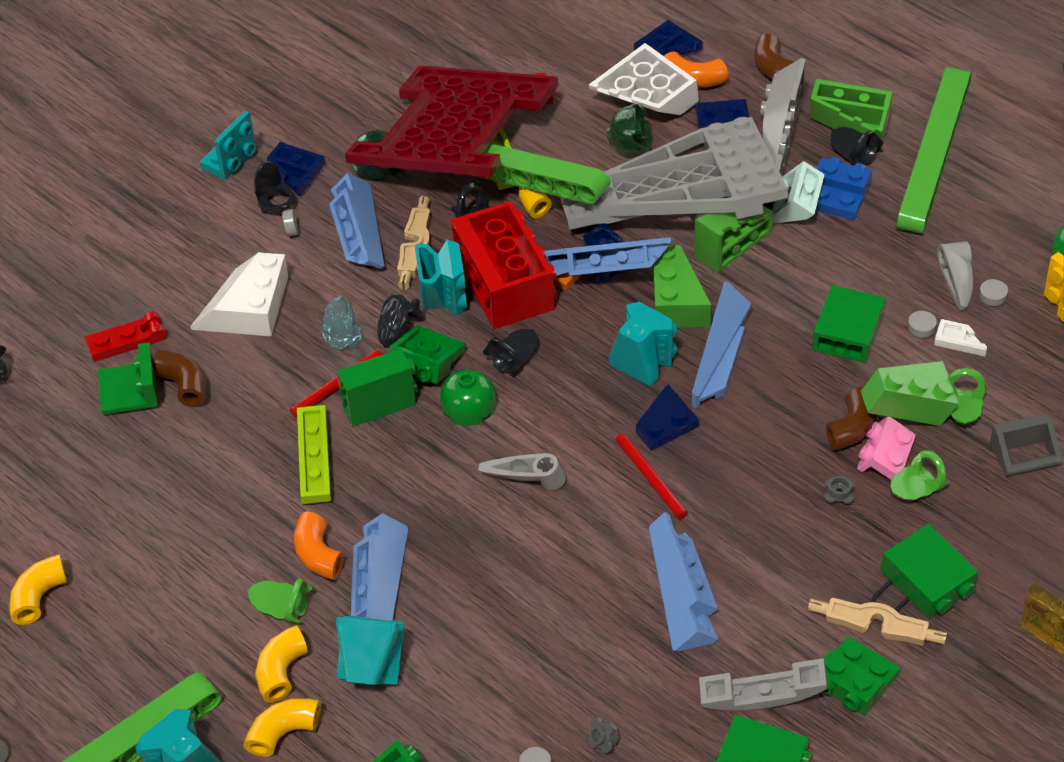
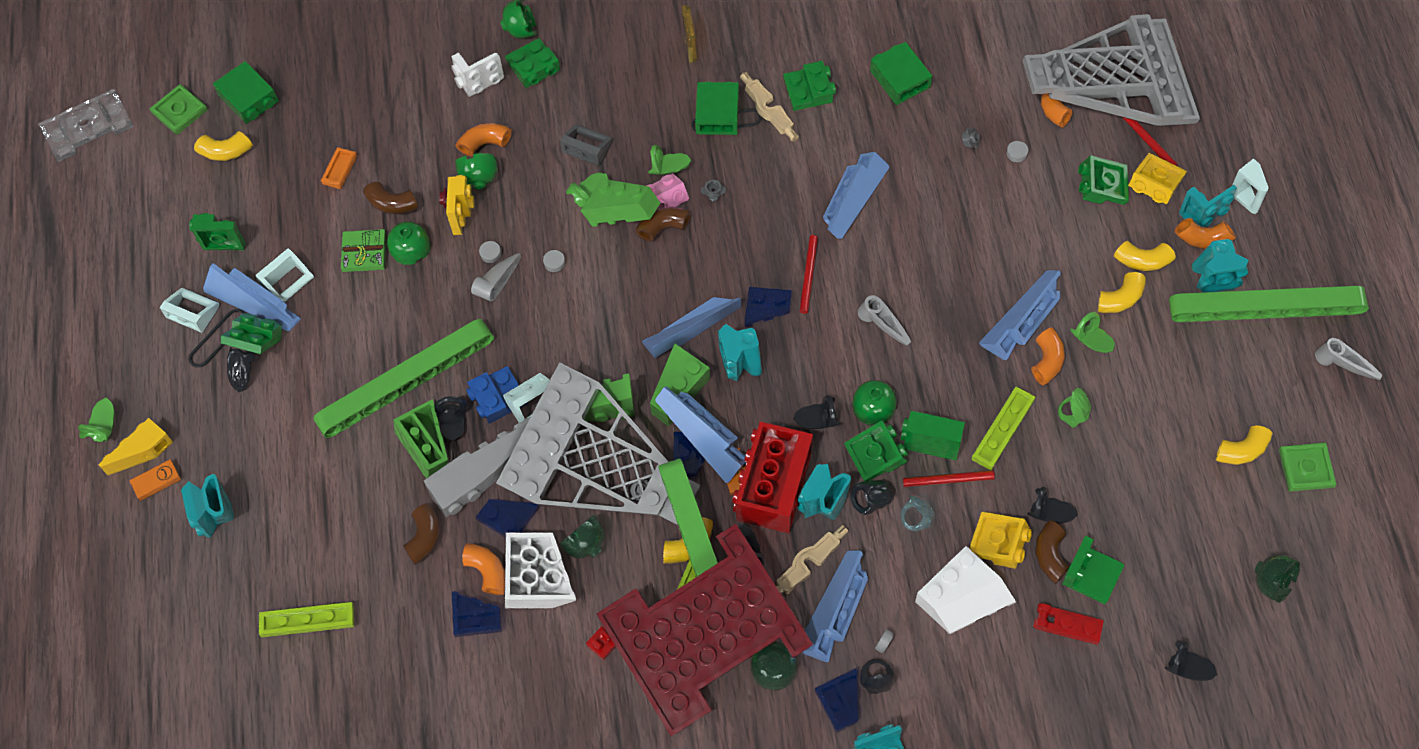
camera: 140 degrees left, 15 degrees up
(208, 410) = (1051, 508): none -> black piece
(240, 354) = (1000, 539): none -> yellow plate
(241, 508) = (1080, 408): none -> bright green piece
(369, 650) = (1069, 253): teal piece -> none
(765, 690) = (862, 107): light grey slope -> none
(848, 324) = (598, 286): green brick -> none
(959, 338) = (543, 238): white tile -> none

